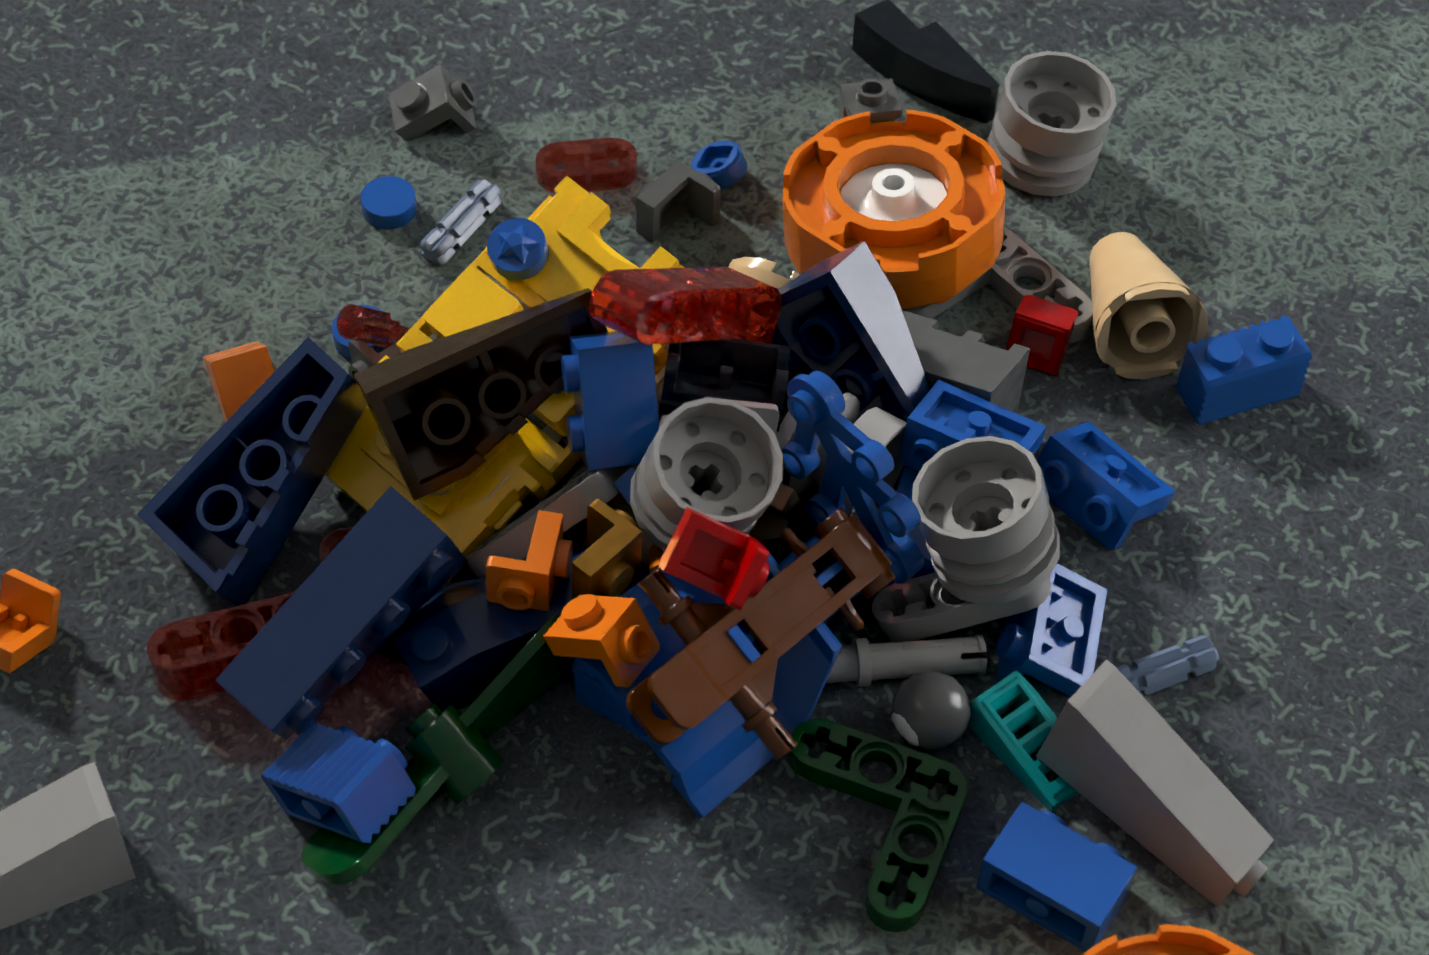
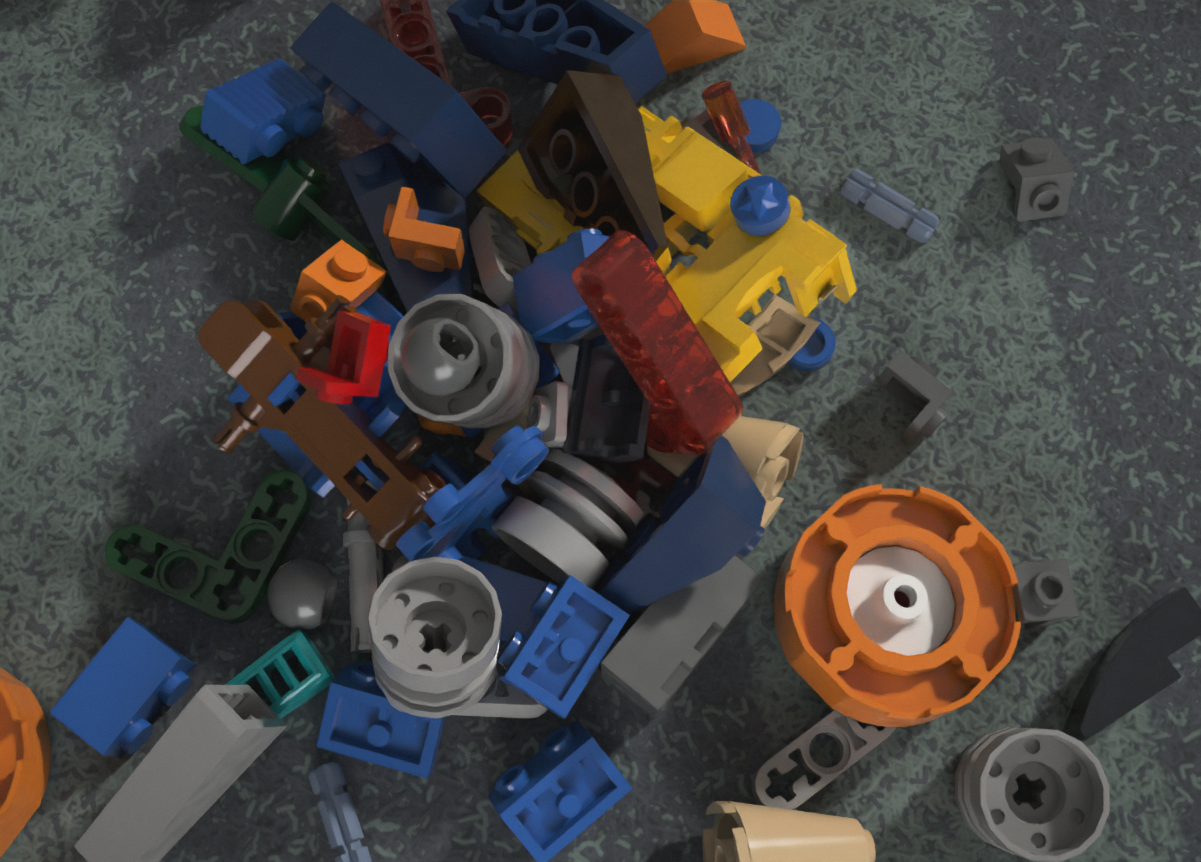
camera: 95 degrees right, 20 degrees up
(388, 202) = (913, 144): blue tile -> none
(587, 164) = (980, 317): clear red beam -> none
(613, 556) = (411, 287): pearl gold bracket -> none
(720, 462) = (440, 356): none -> dark grey piece
(721, 162) = (971, 443): blue tile -> none
(1045, 330) = (747, 751): red slope -> none

